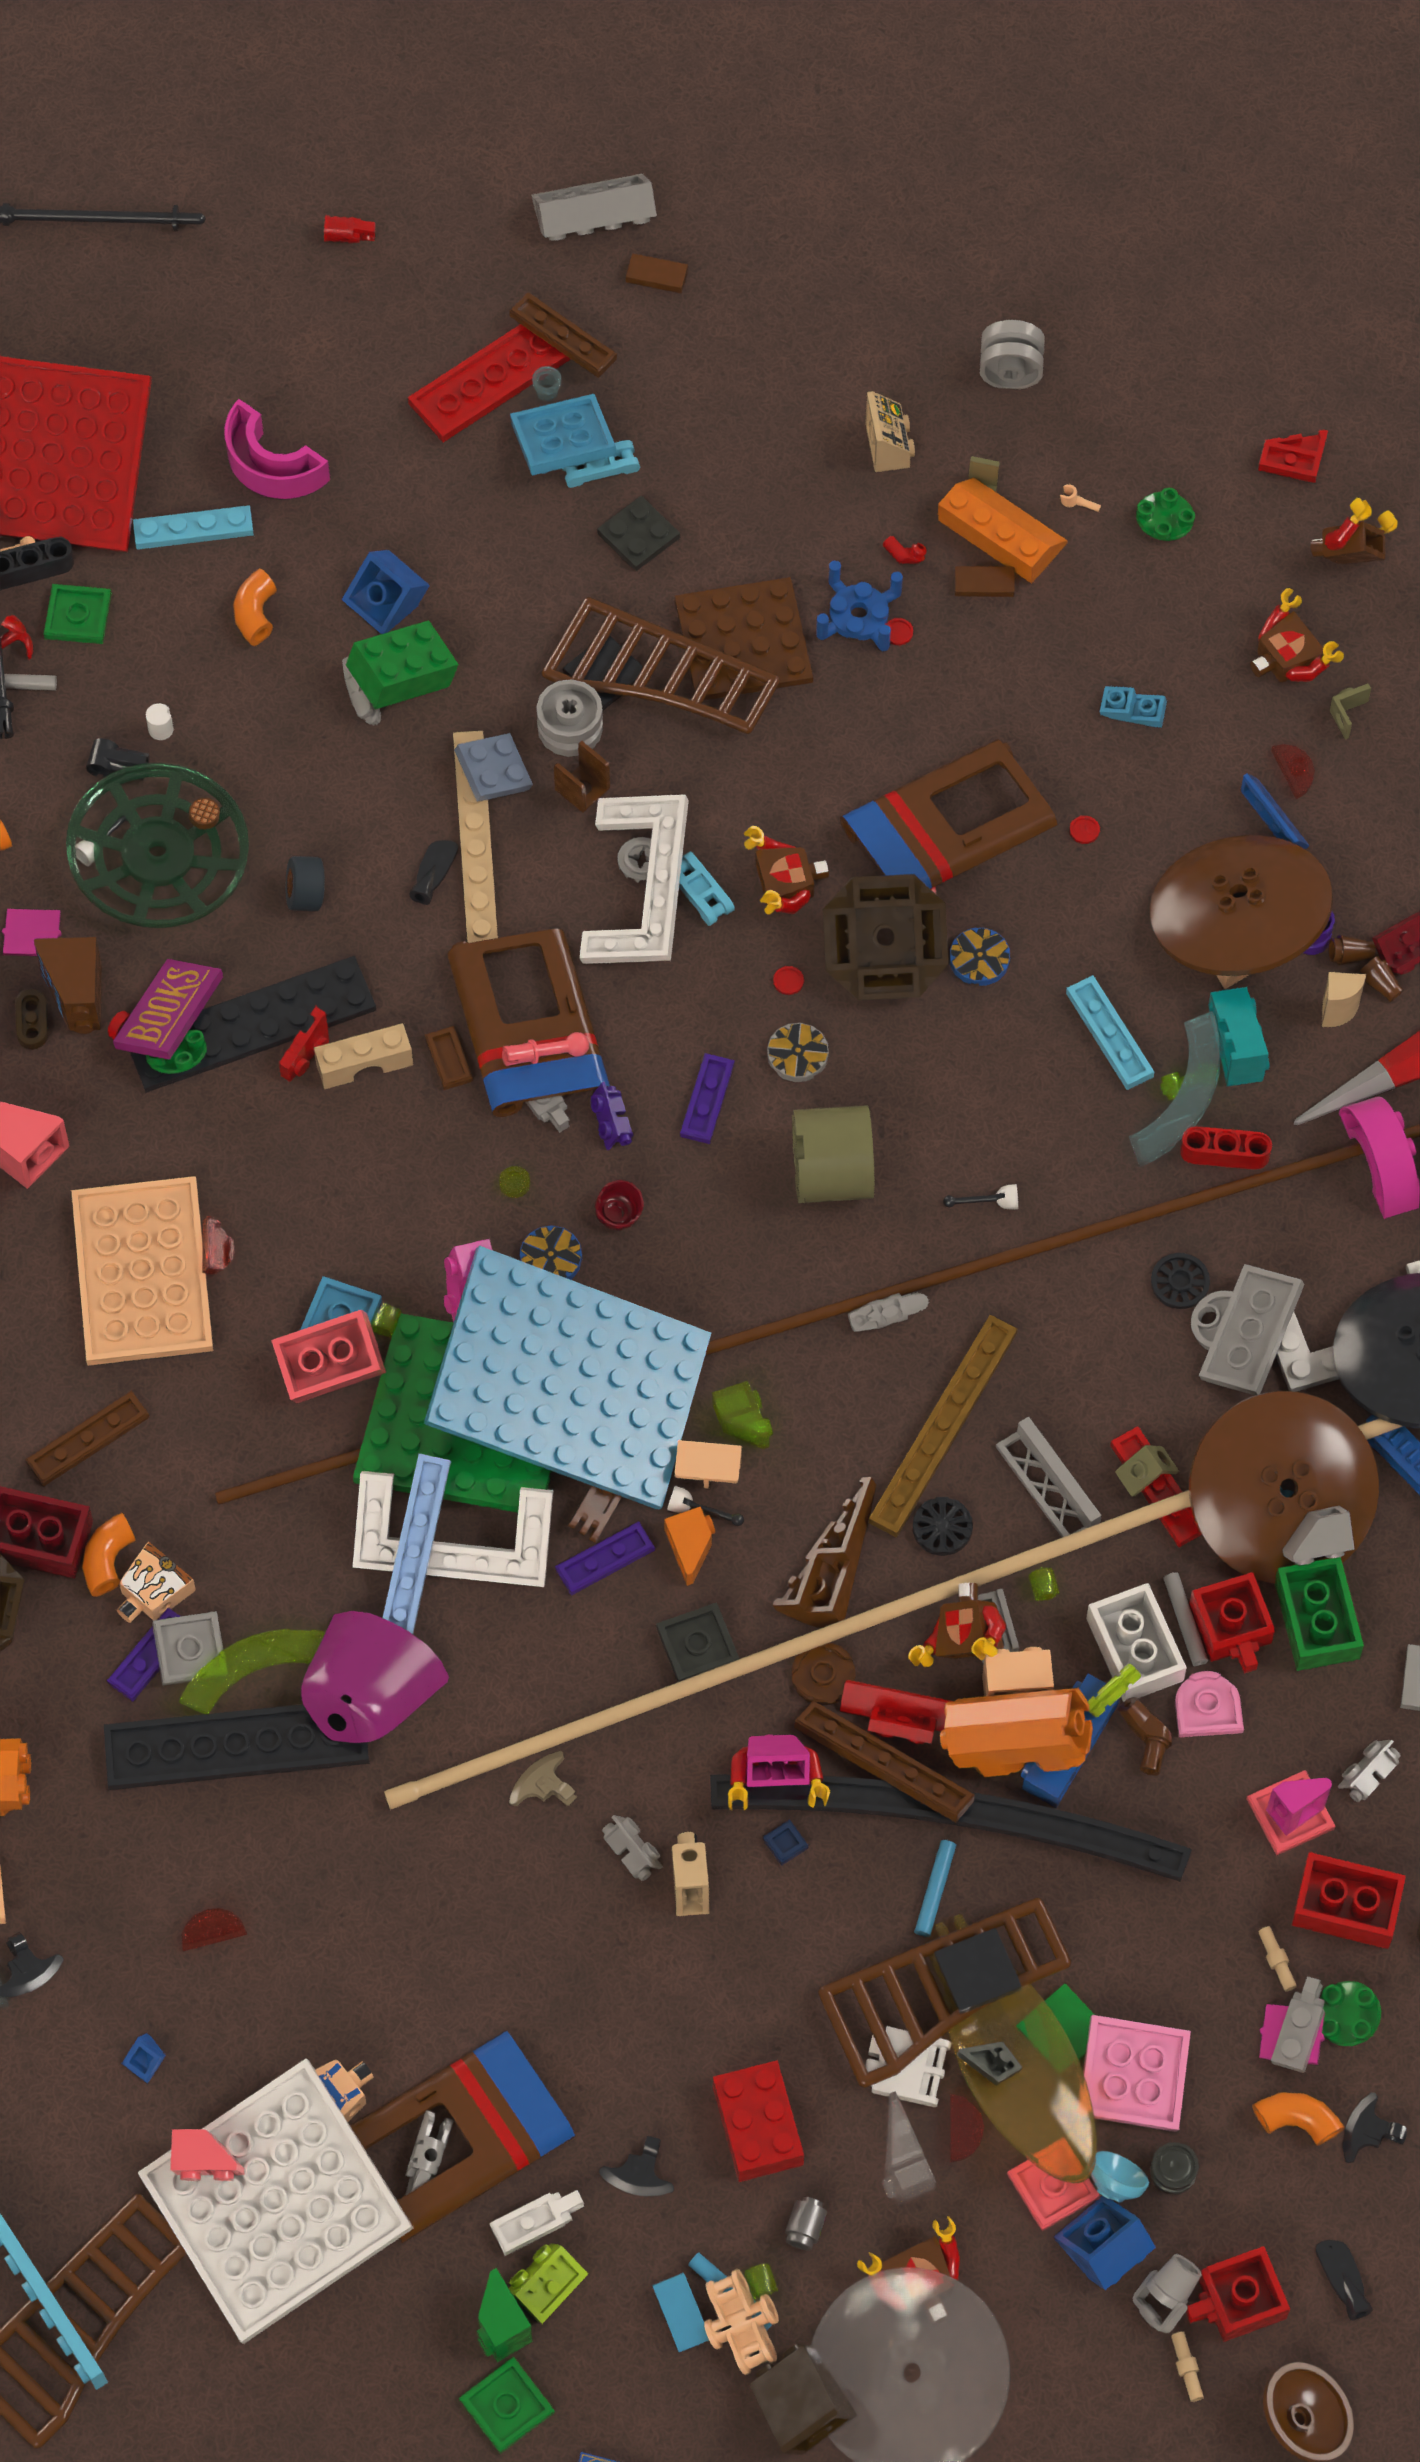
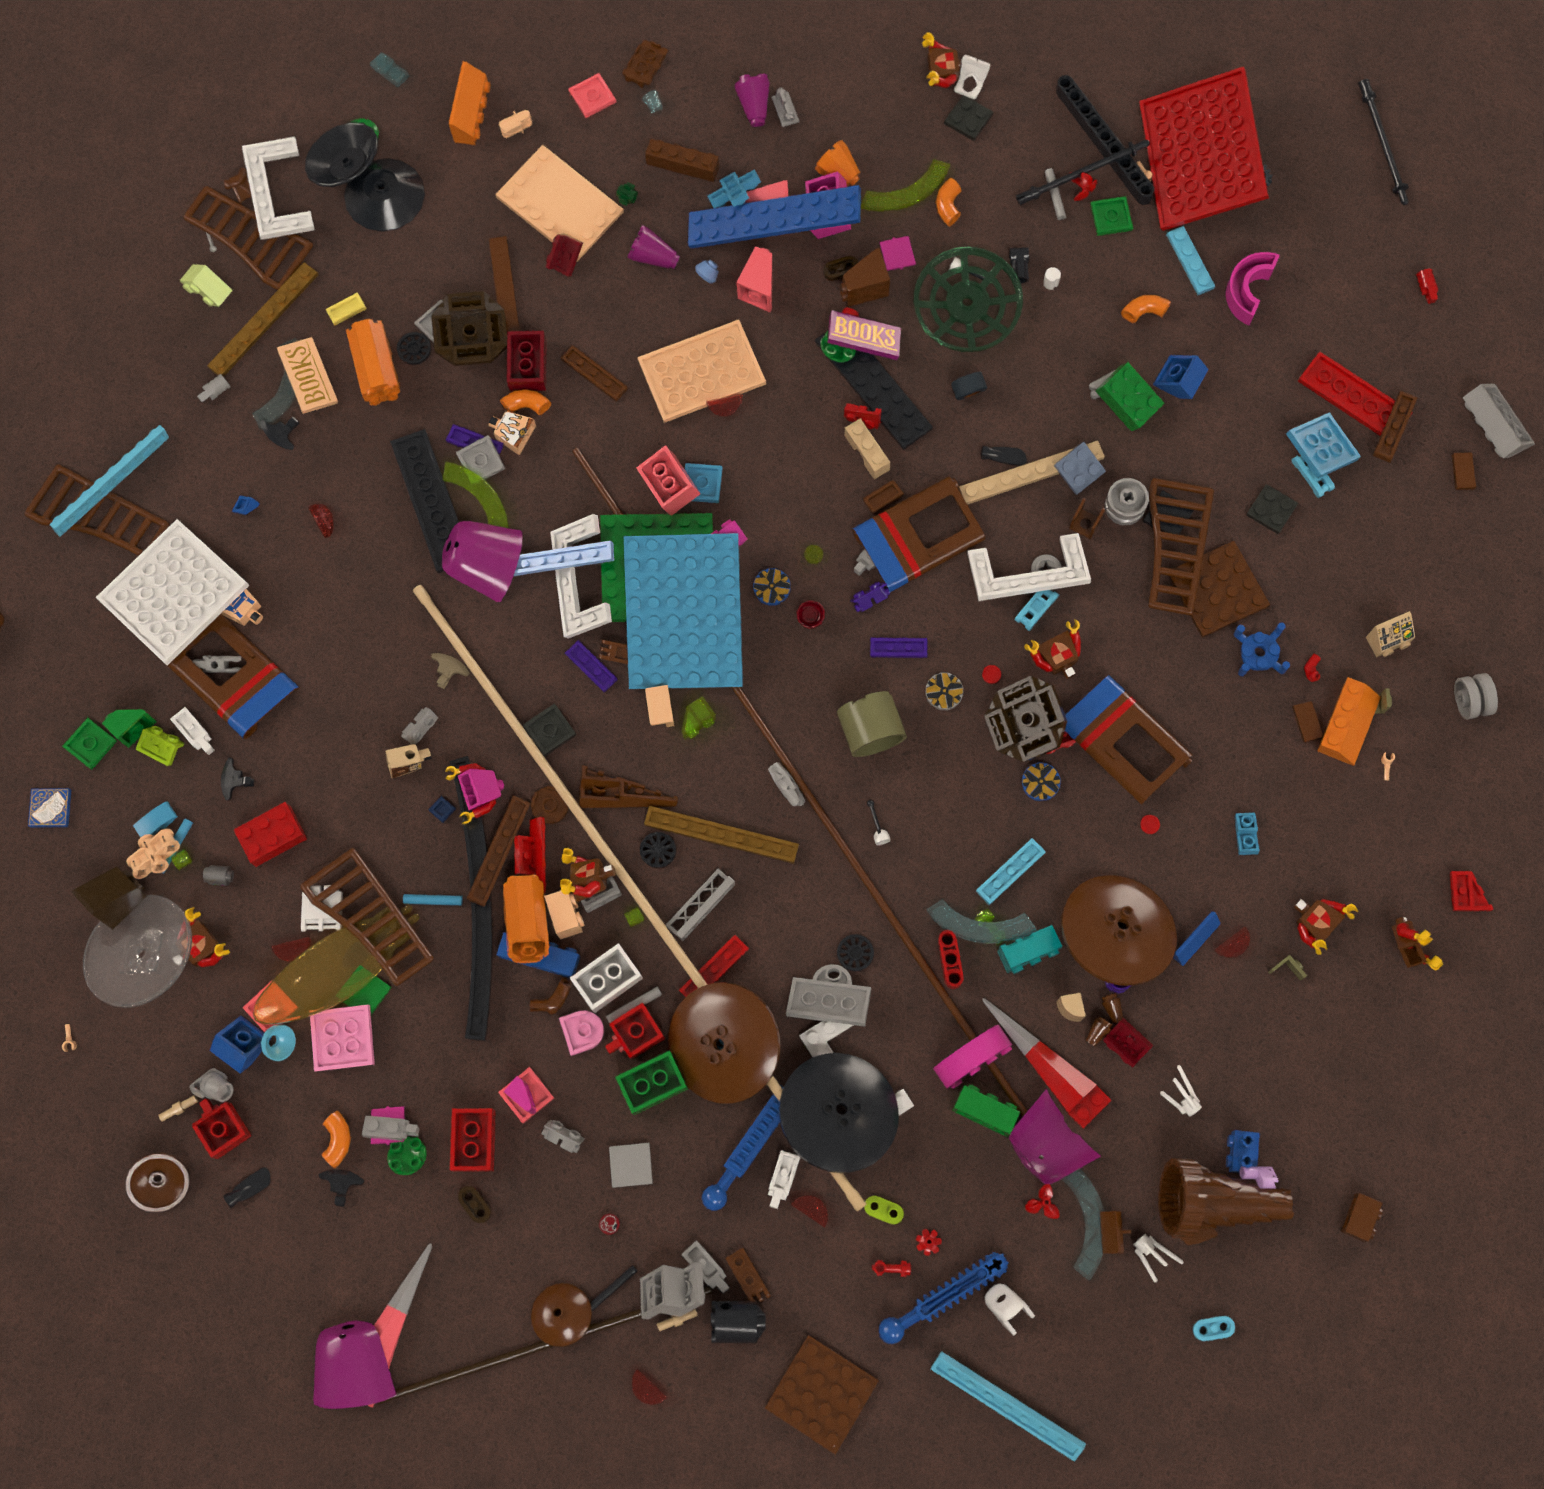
camera: 80 degrees right, 10 degrees up
(201, 2153) = (184, 546): coral slope -> none
(204, 813) = (994, 317): tile -> none
(386, 1320) = (705, 507): clear neon green hose -> none
(546, 376) = (1360, 422): clear light blue piece -> none
(575, 1044) = (907, 562): coral pin -> none
(682, 1501) = (635, 699): hinge -> none
(690, 1540) = (609, 709): orange slope -> none
(900, 631) = (1254, 679): red piece -> none
(905, 2164) = (264, 920): clear slope -> none
(977, 1971) = (377, 932): black tile -> none
(991, 2061) = (330, 955): pearl dark grey piece -> none
(1113, 1690) = (566, 969): lime axle -> none
(1145, 1468) = (721, 958): olive bracket -> none
(1165, 515) = (1393, 821): green dish -> none
(1174, 2168) = (291, 1074): pearl dark grey wheel -> none
(1277, 1958) = (432, 1106): tan bar -> none
(1320, 1534) = (694, 1070): light grey slope -> none

